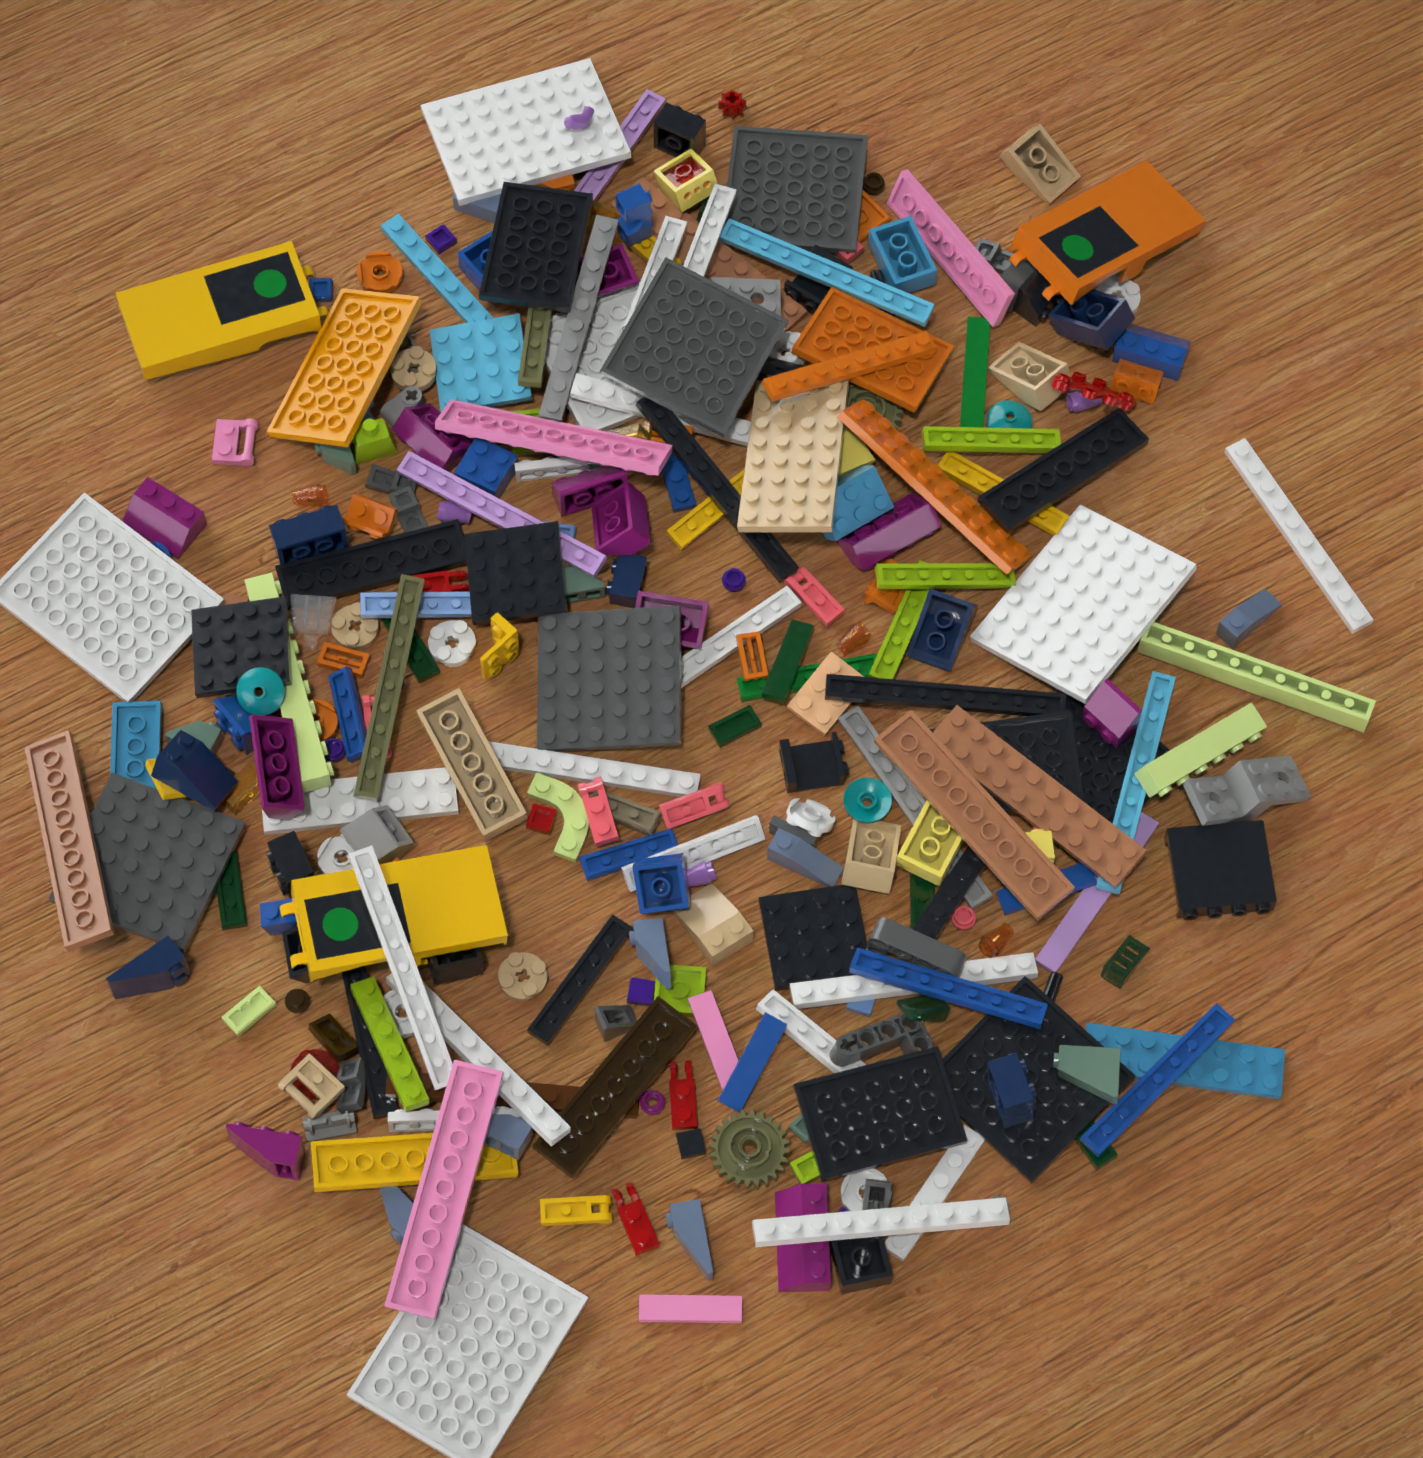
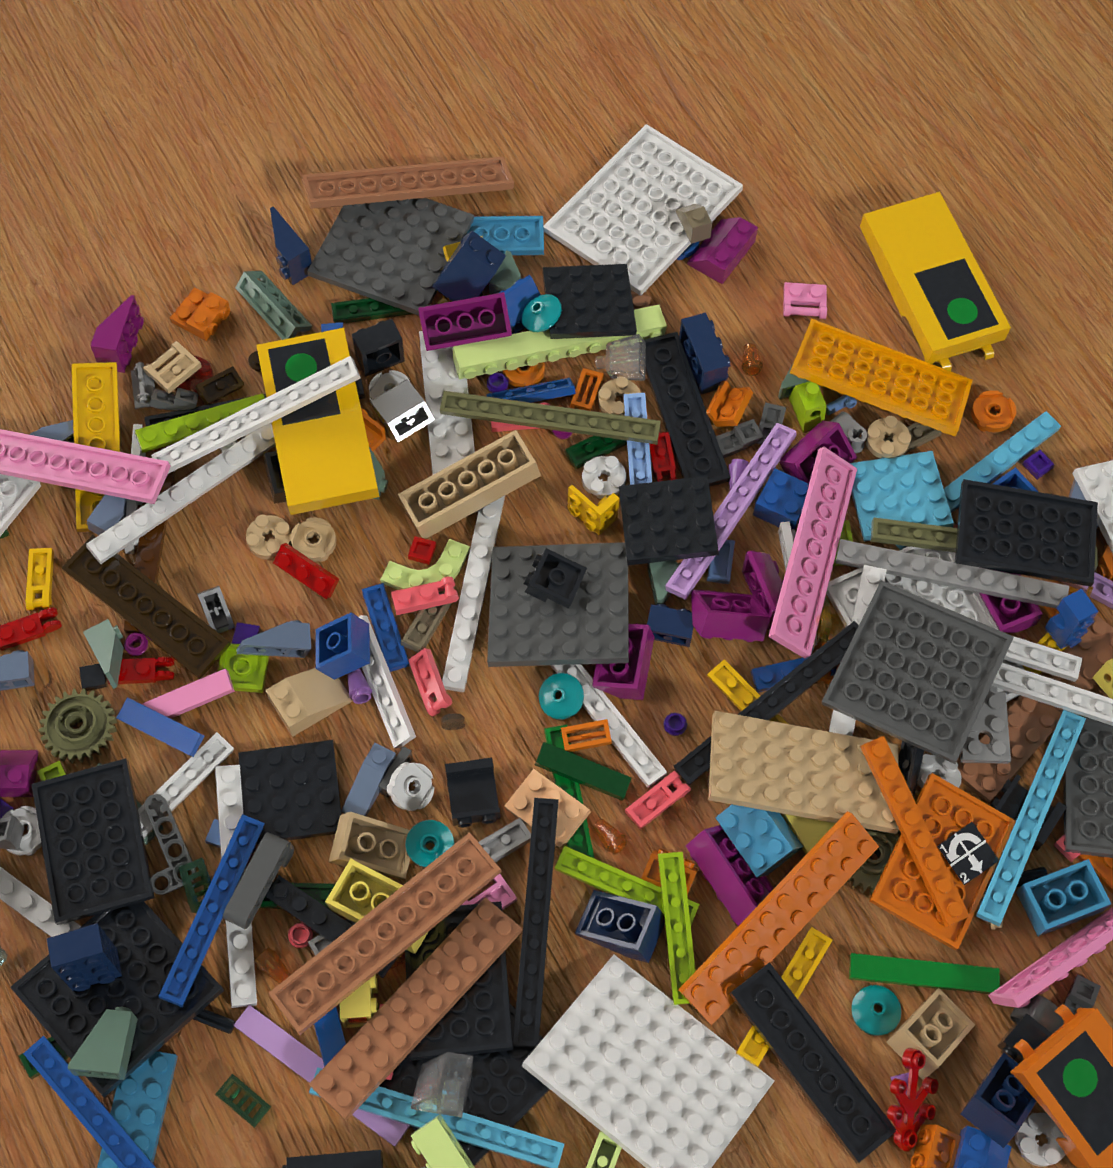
camera: 90 degrees right, 0 degrees up
(136, 539) = (695, 222): none -> dark tan slope
(223, 991) = (269, 304): none -> sand green fence
(230, 1069) = (201, 313): none -> orange plate
(249, 1011) = (252, 324): yellowish green plate -> none
(321, 289) = (971, 365): blue tile -> none
(540, 923) = (325, 534): none -> tan plate
(566, 933) = (306, 571): none -> red plate
(579, 980) = (260, 582): black plate -> none
(589, 675) = (554, 578): none -> black plate
(662, 1125) = (107, 649): none -> sand green slope
(696, 686) = (571, 698): none -> teal dish
(734, 726) = (516, 723): dark green tile -> none
(737, 783) = (453, 721): none -> clear smoke tile
(865, 327) = (968, 853): none -> black sticker
(989, 439) = (845, 984): lime plate -> none
(1108, 769) = (444, 1084): none -> clear slope
(1111, 714) = (509, 1092): magenta slope -> none

